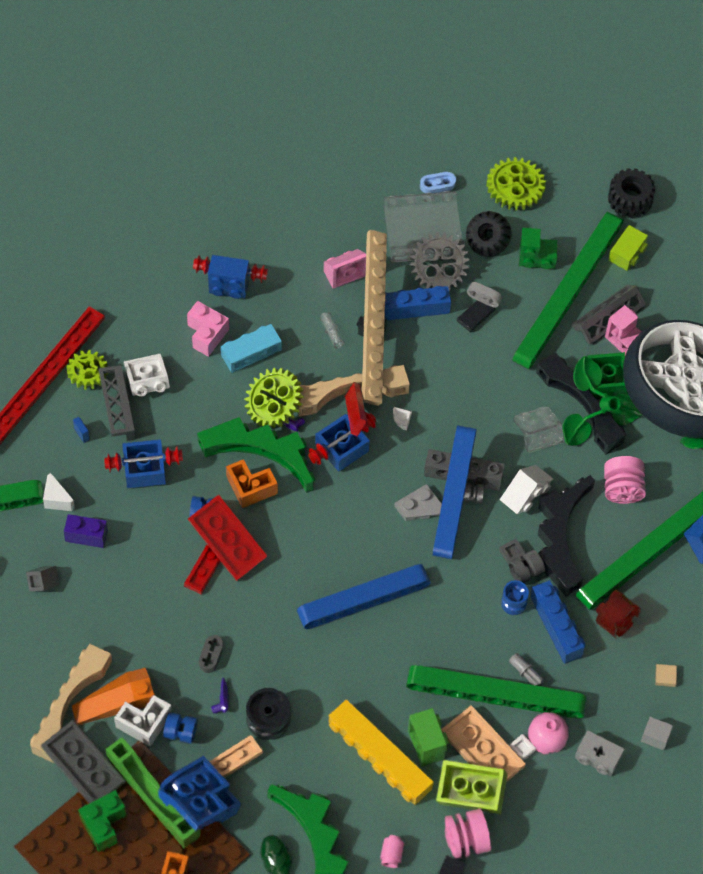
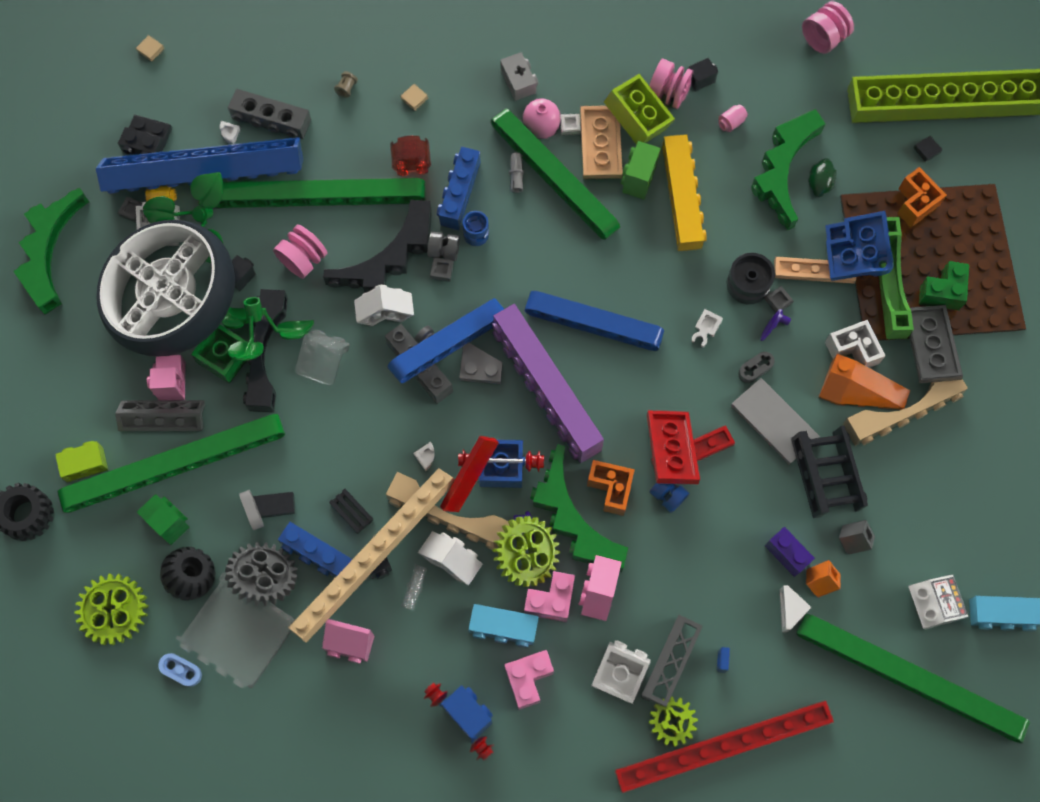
camera: 140 degrees left, 10 degrees up
(47, 532) = (823, 578): none -> orange panel
(100, 588) = (814, 483): none -> black fence
(143, 462) = (693, 576): blue brick -> none
(166, 623) = (771, 418): none -> light grey tile
(173, 727) = (828, 318): blue wheel -> none
(203, 409) = (600, 589): none -> bright pink brick
(228, 384) = (553, 604): none -> bright pink brick
(233, 722) = (779, 299): none -> dark grey tile
(273, 655) = (708, 325): none -> white plate
(323, 356) = (451, 556): none -> white brick
(357, 517) = (547, 384): none -> medium lavender brick
(419, 344) = (339, 498): none -> black tile
(655, 440) = (243, 271): none -> black brick
(656, 733) = (464, 59): light grey panel -> none

